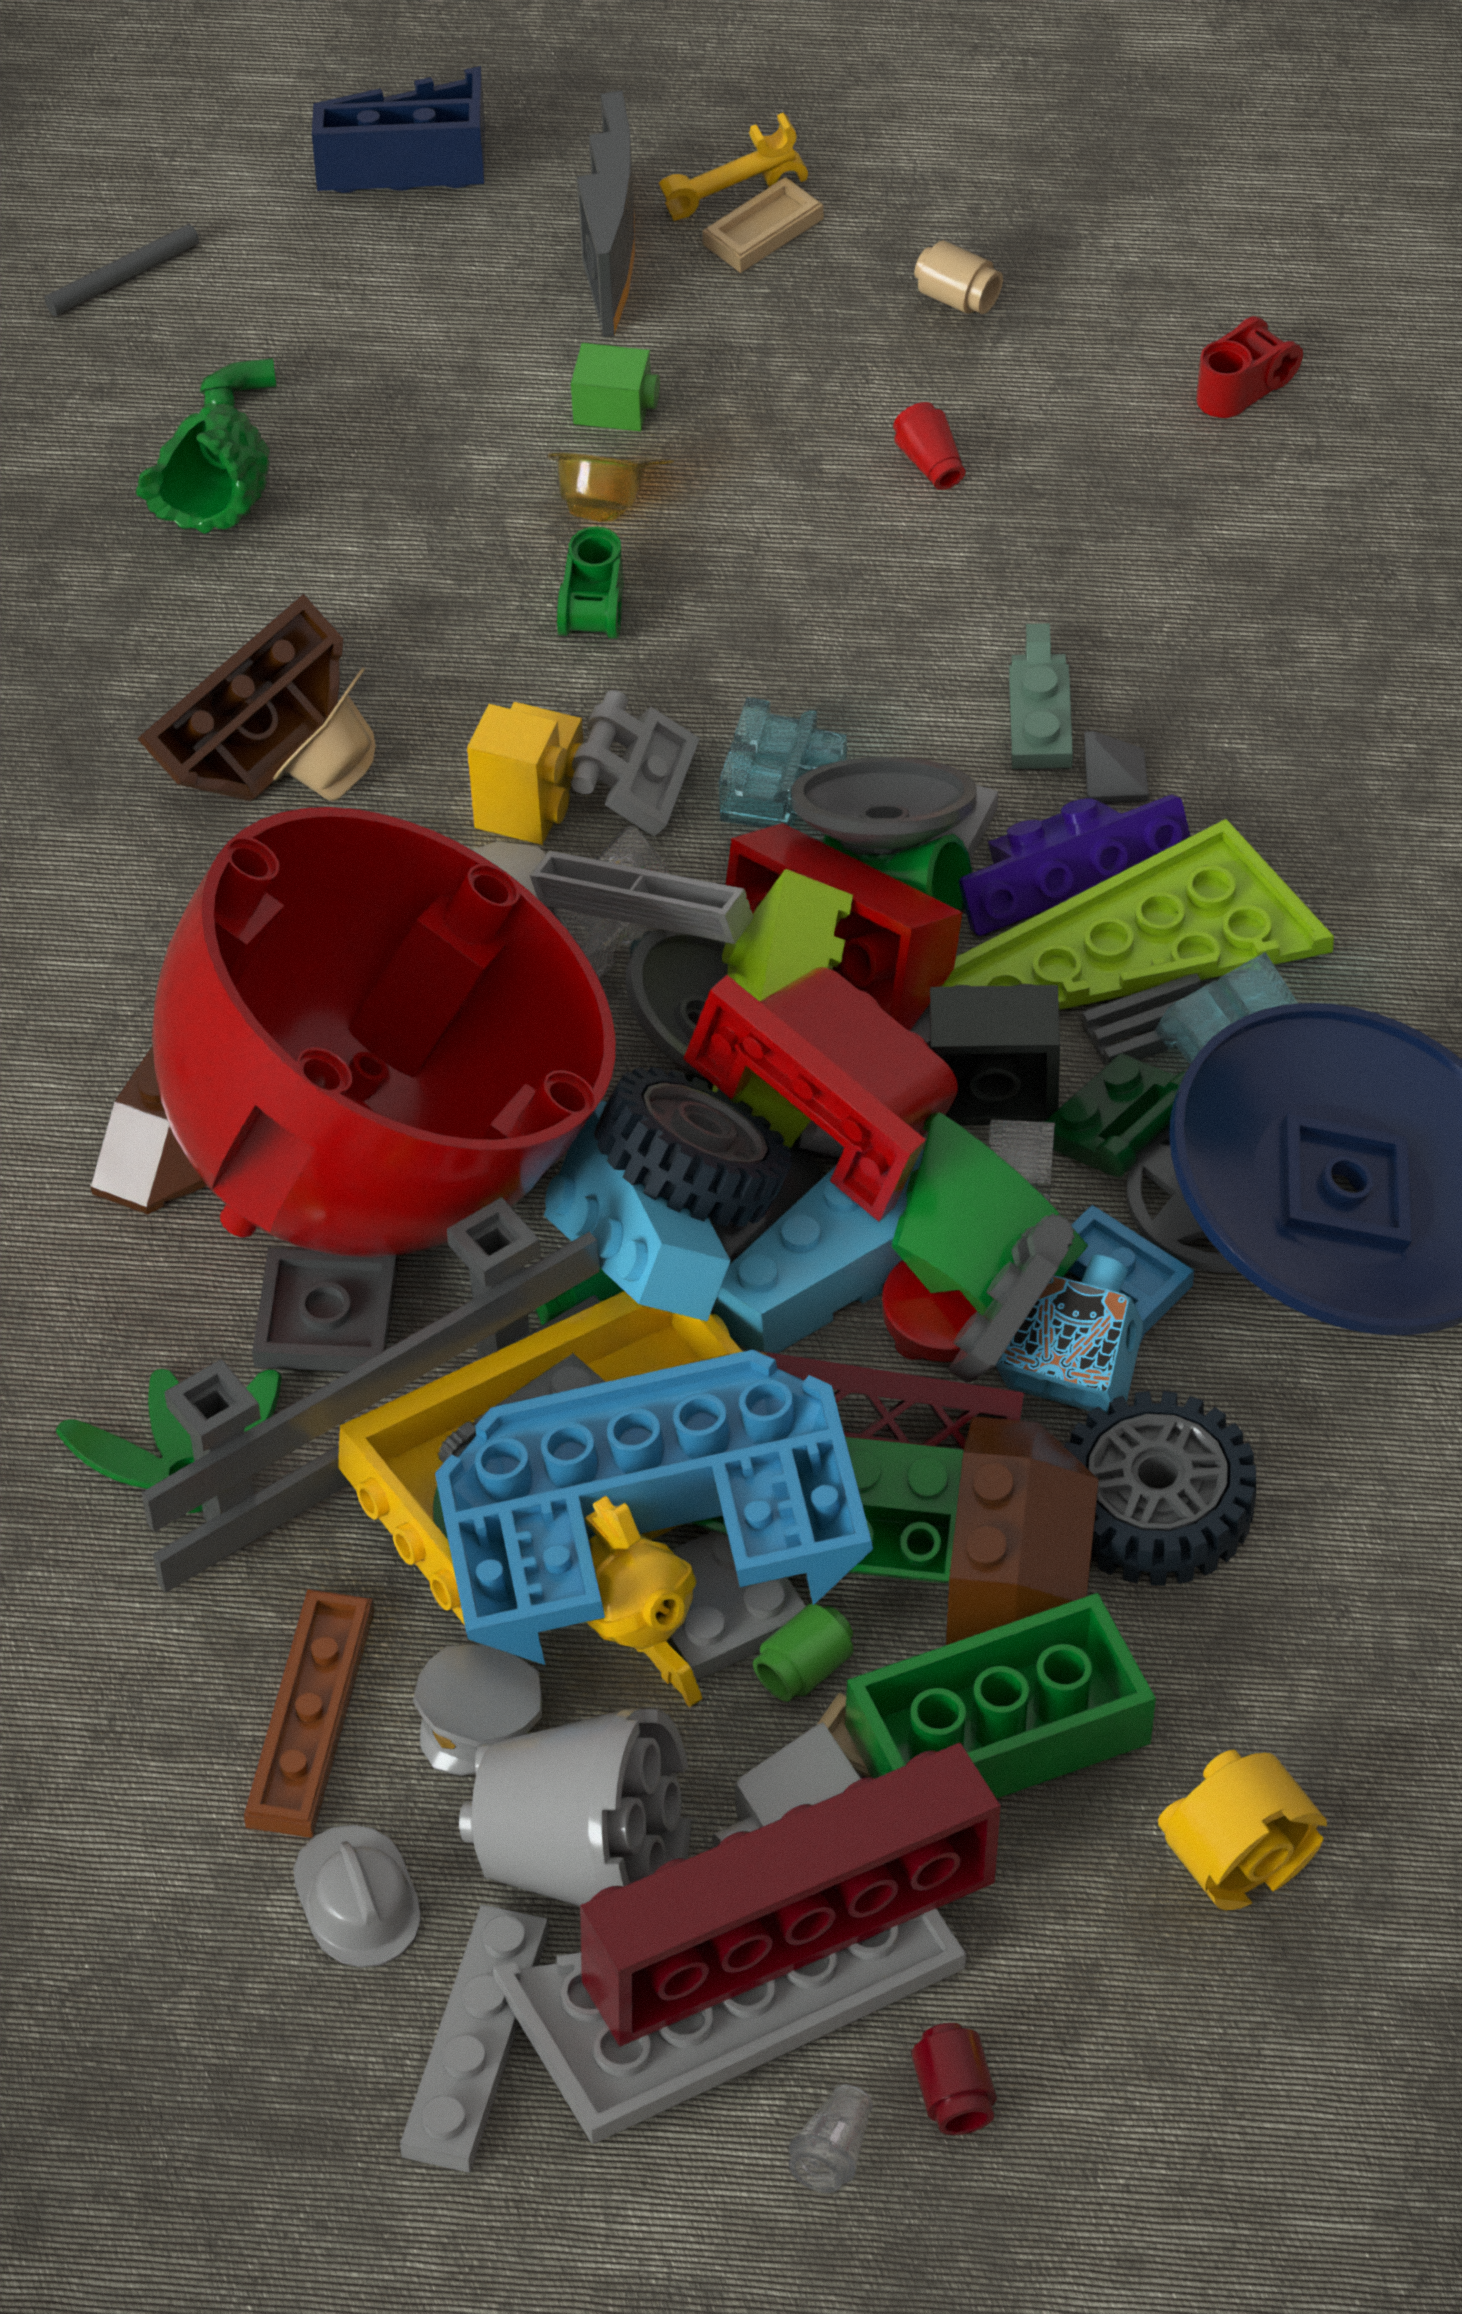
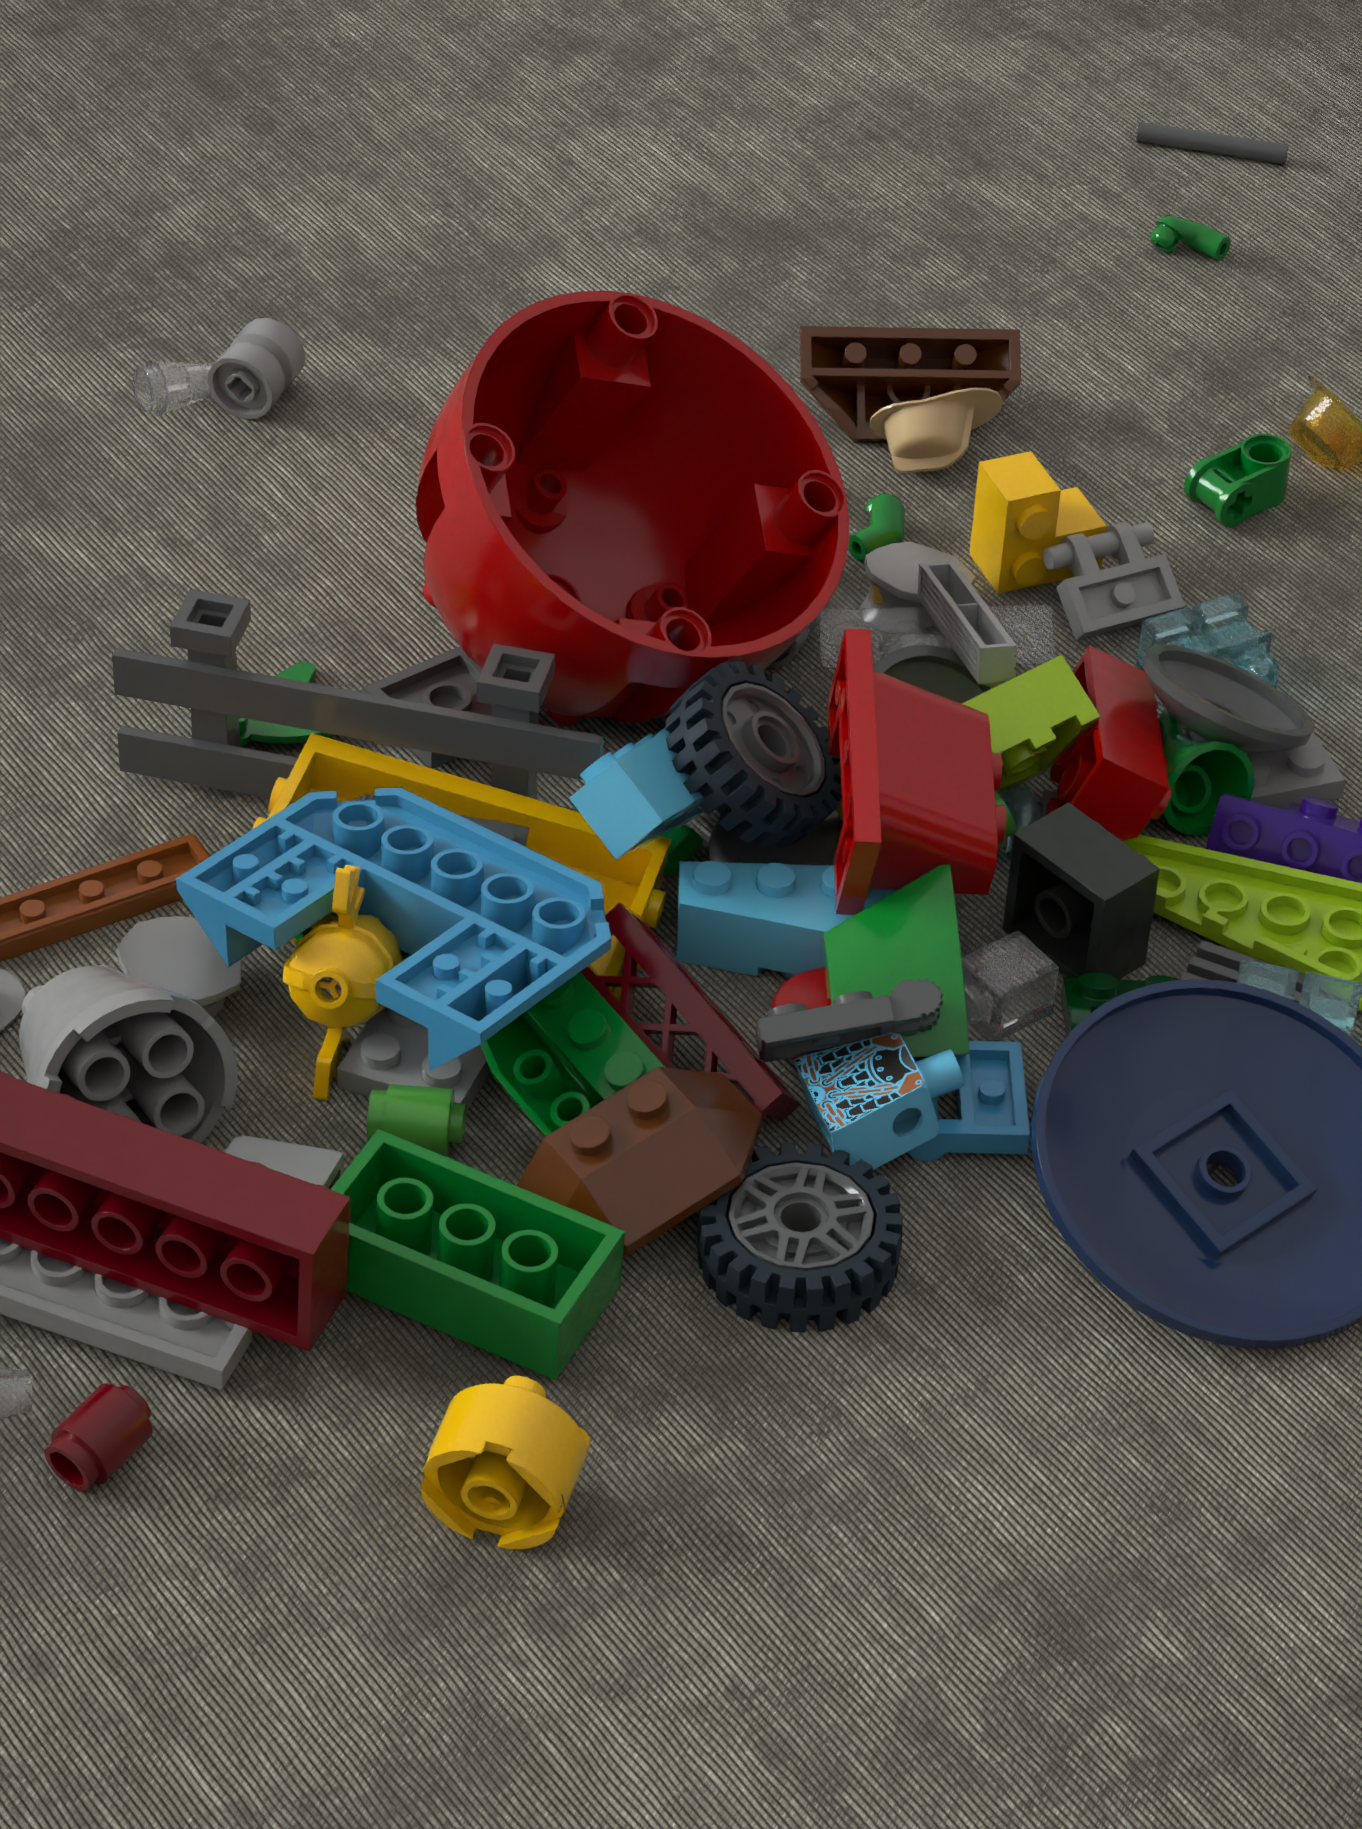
camera: 45 degrees right, 10 degrees down
(207, 471) = (1086, 255): green hair -> none

